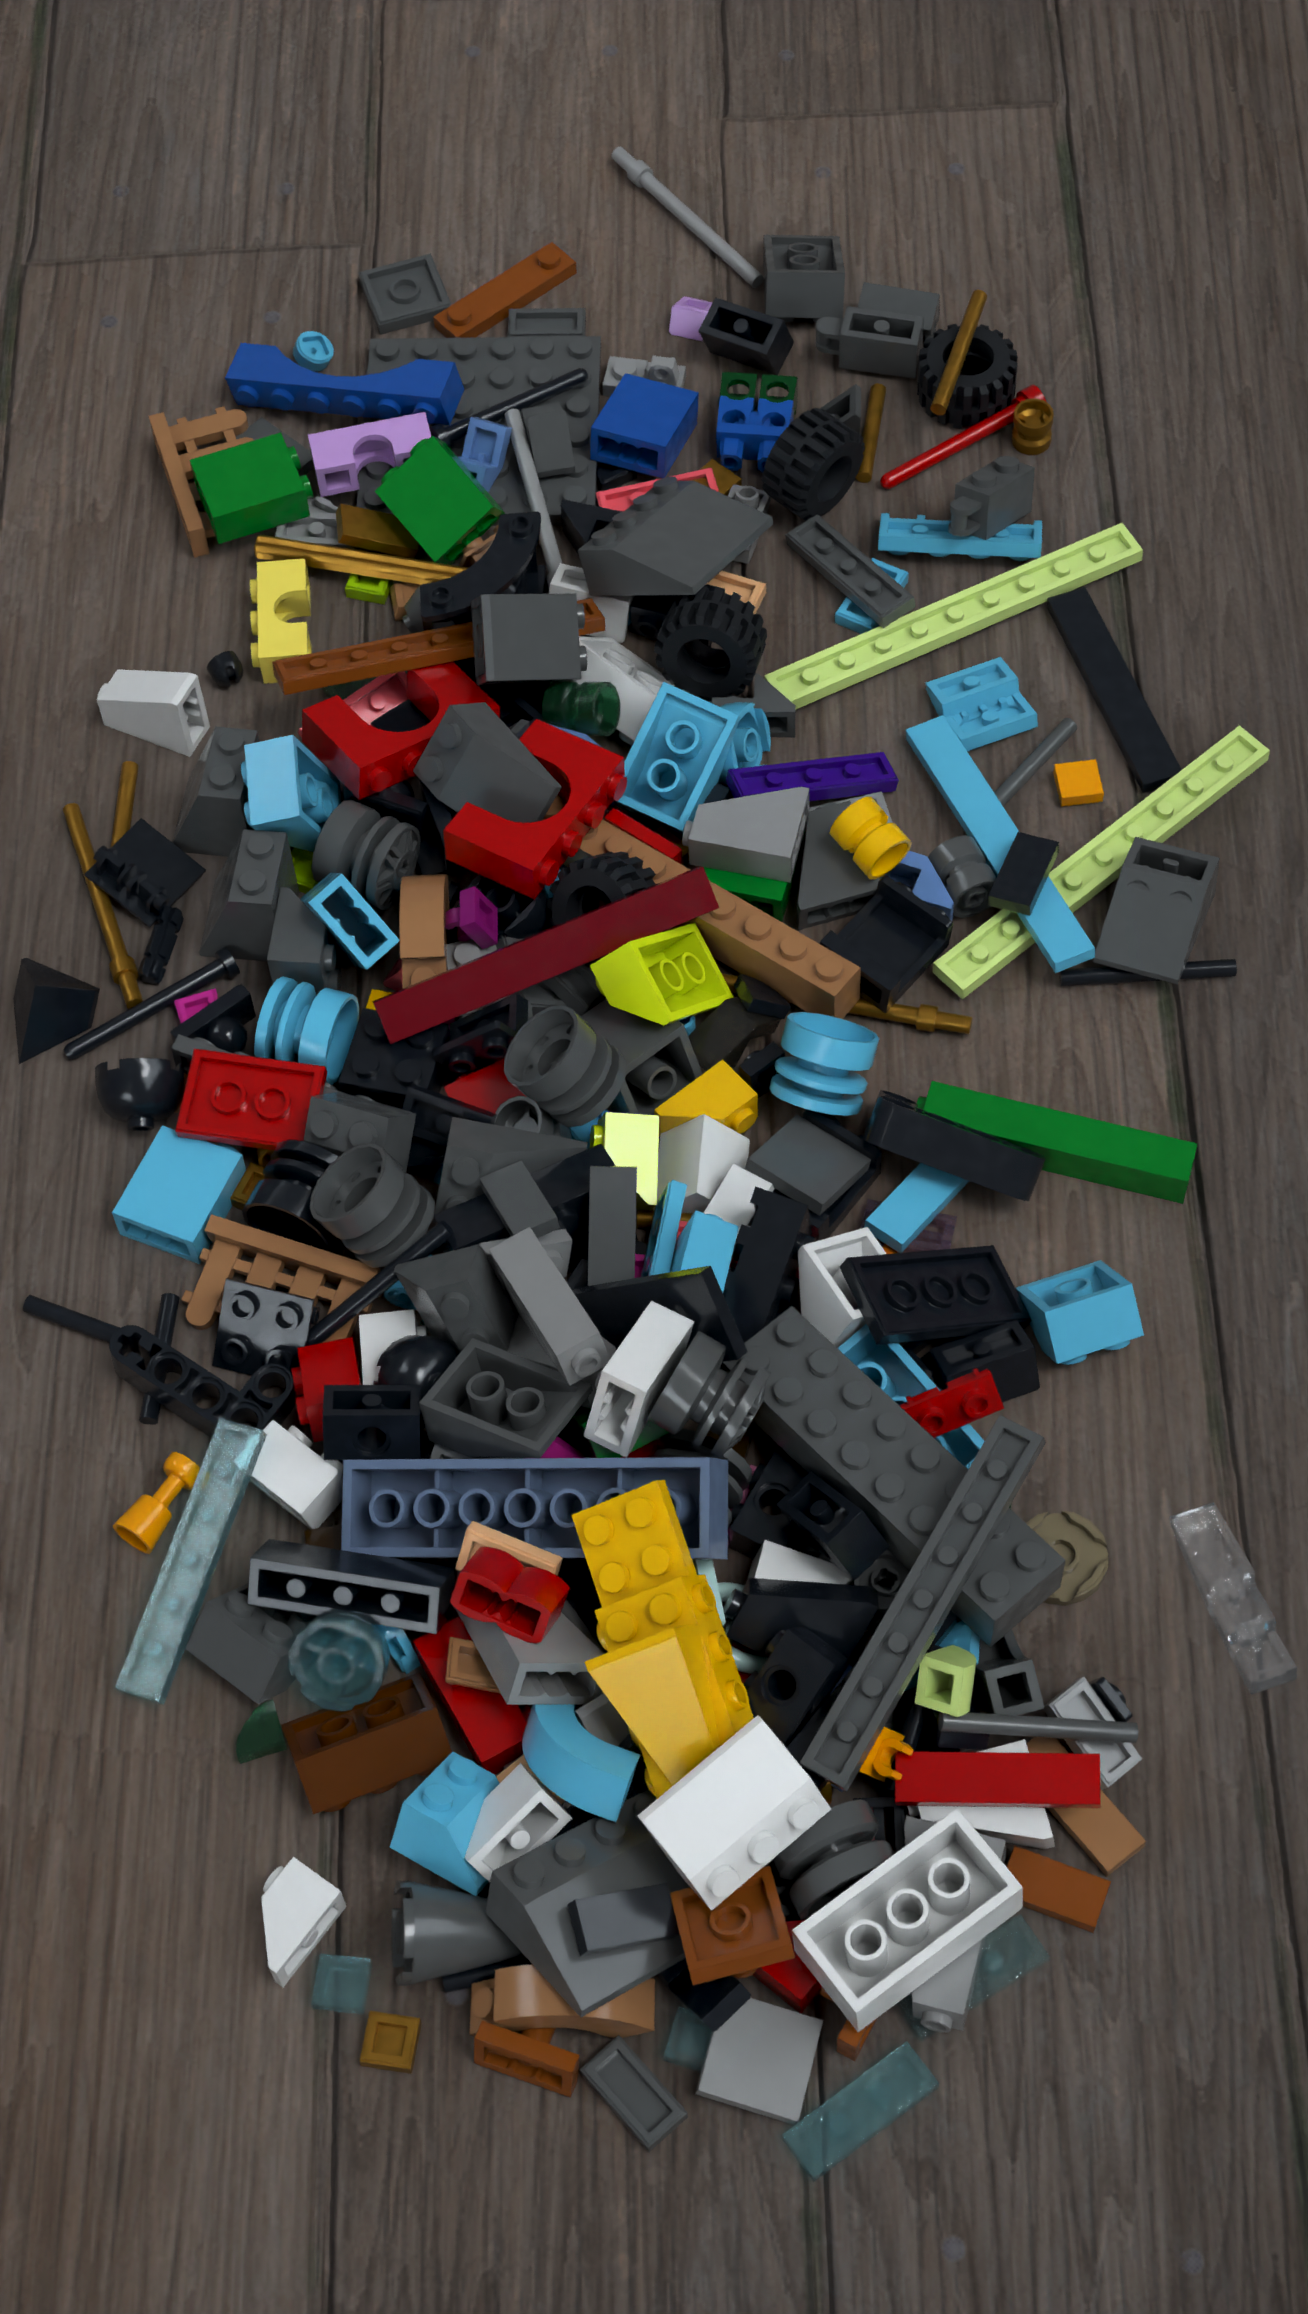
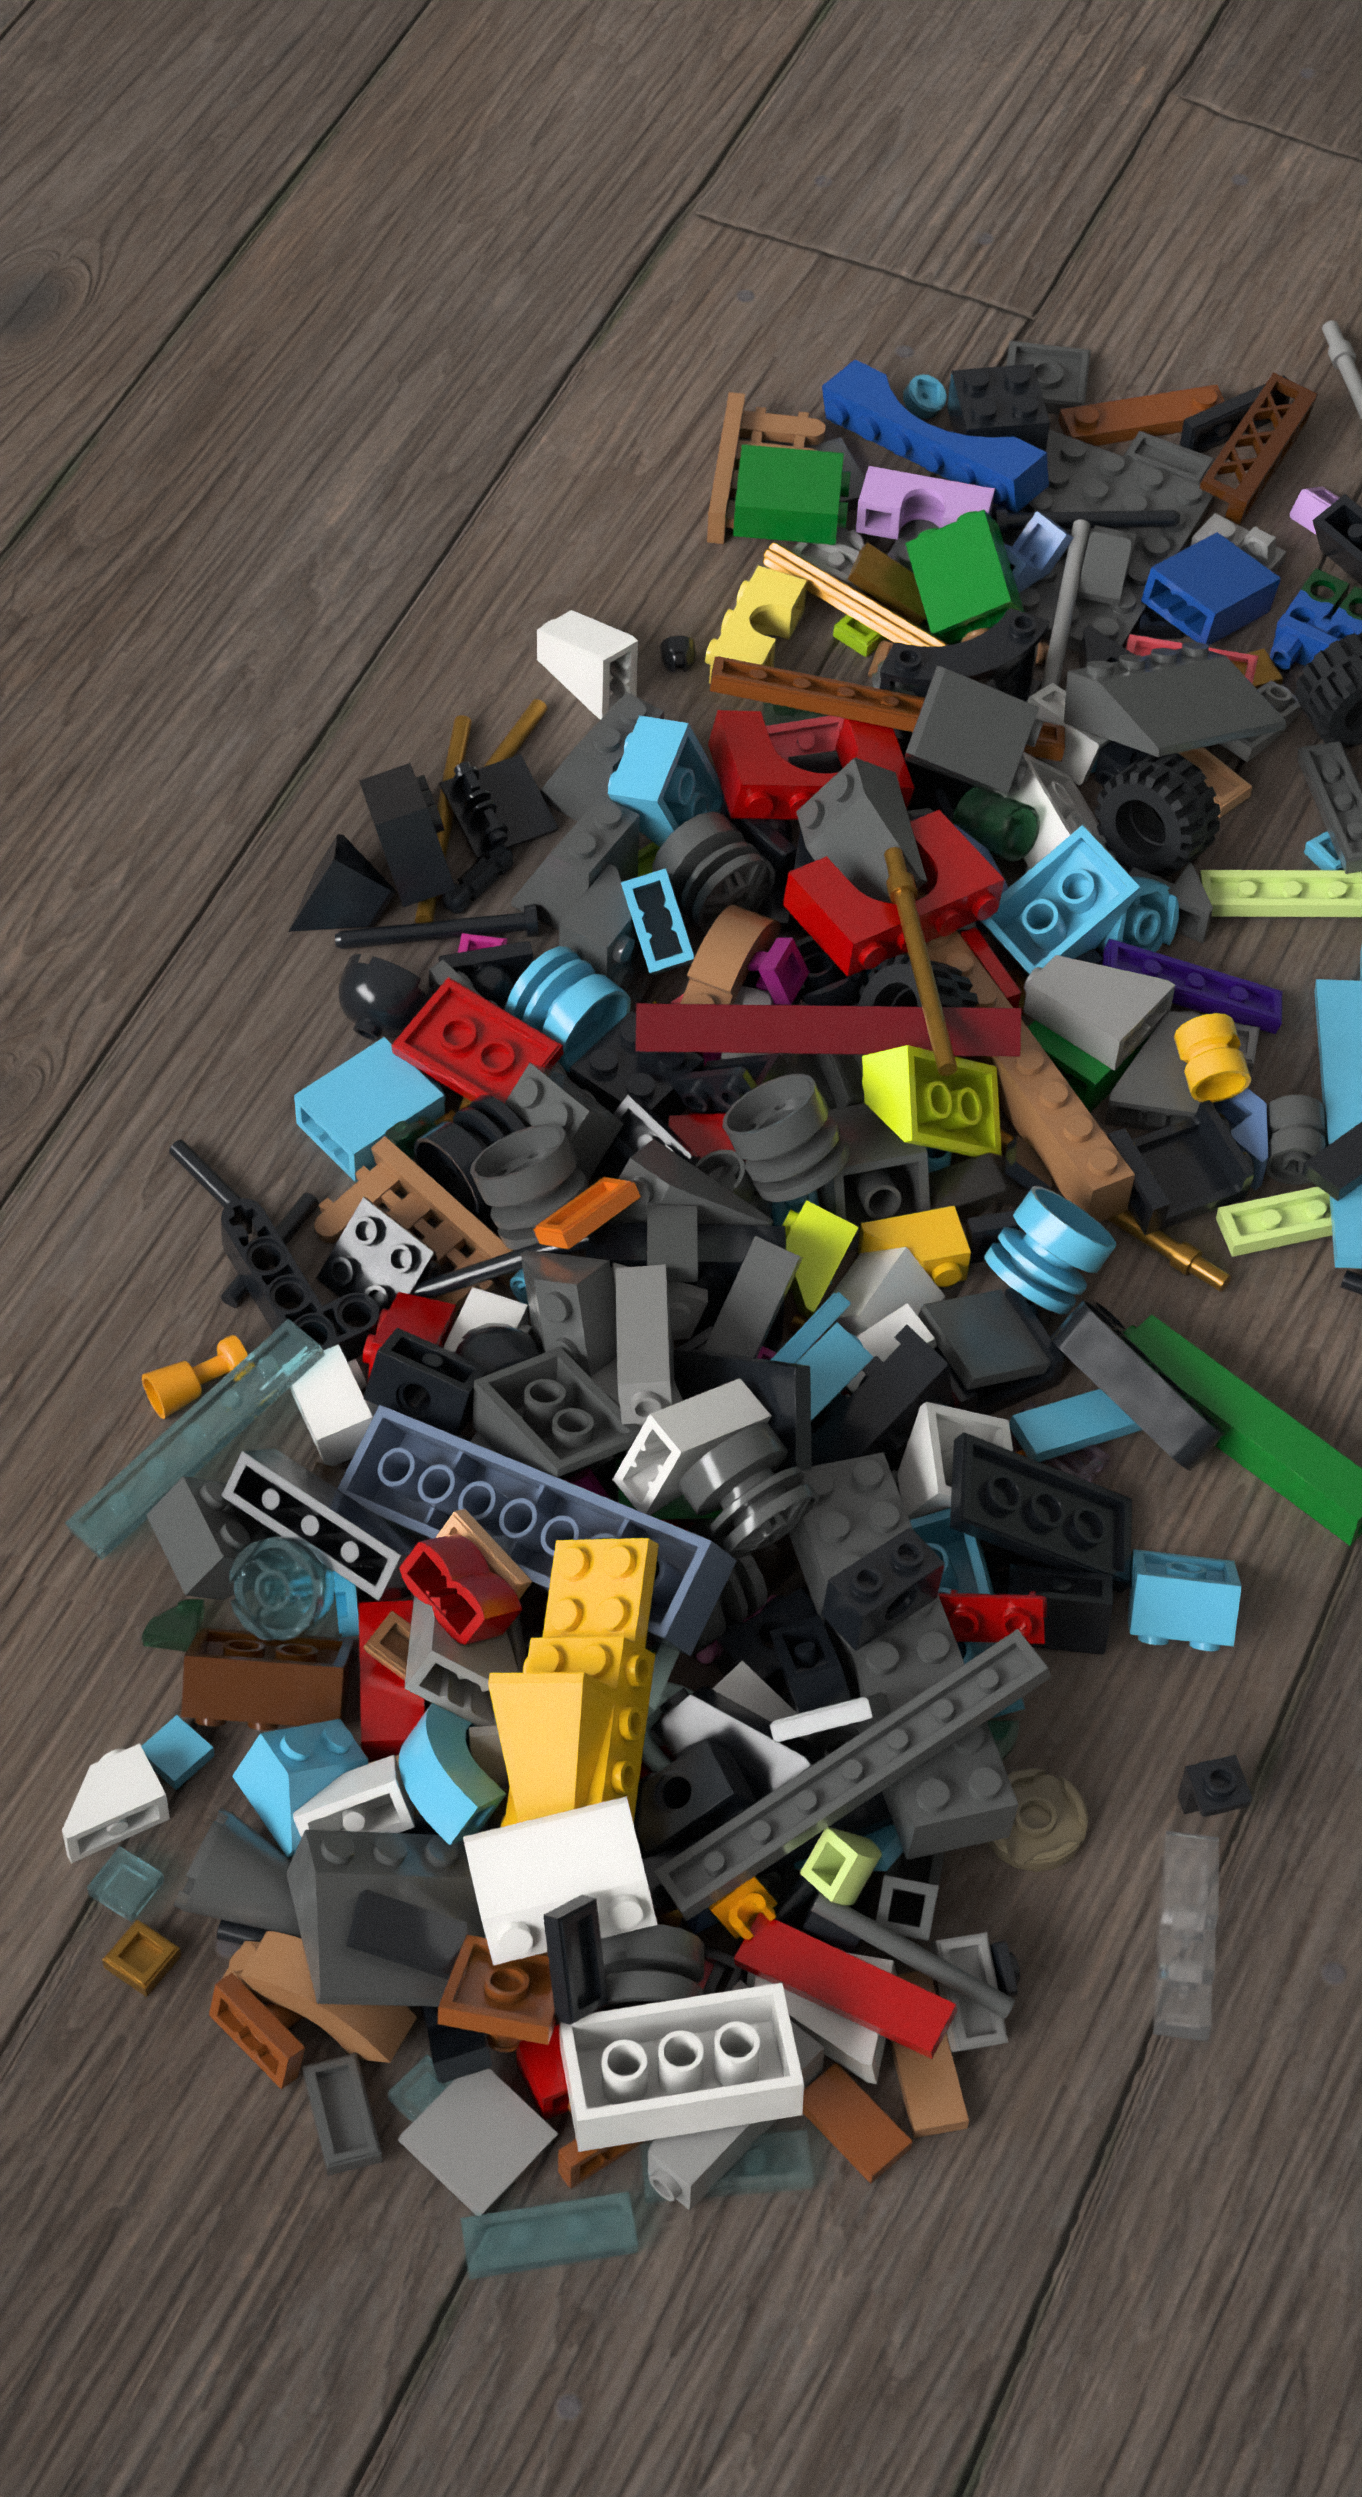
camera: 20 degrees right, 5 degrees down
(83, 930) = (407, 831): none -> black wedge
(231, 1205) = (405, 1134): none -> clear green tile
(322, 1844) = (177, 1752): none -> medium azure tile
(387, 335) = (999, 404): none -> black brick
(435, 1210) = (586, 1212): none -> orange tile
(550, 807) = (903, 893): none -> pearl gold bar
(584, 263) = (1219, 422): none -> black tile
(630, 287) = (1269, 456): none -> reddish brown fence
(785, 1875) = (575, 1959): none -> black tile
(865, 1429) = (882, 1588): none -> black brick
(877, 1560) = (830, 1717): none -> tile
(1193, 1462) = (1214, 1787): none -> black bracket

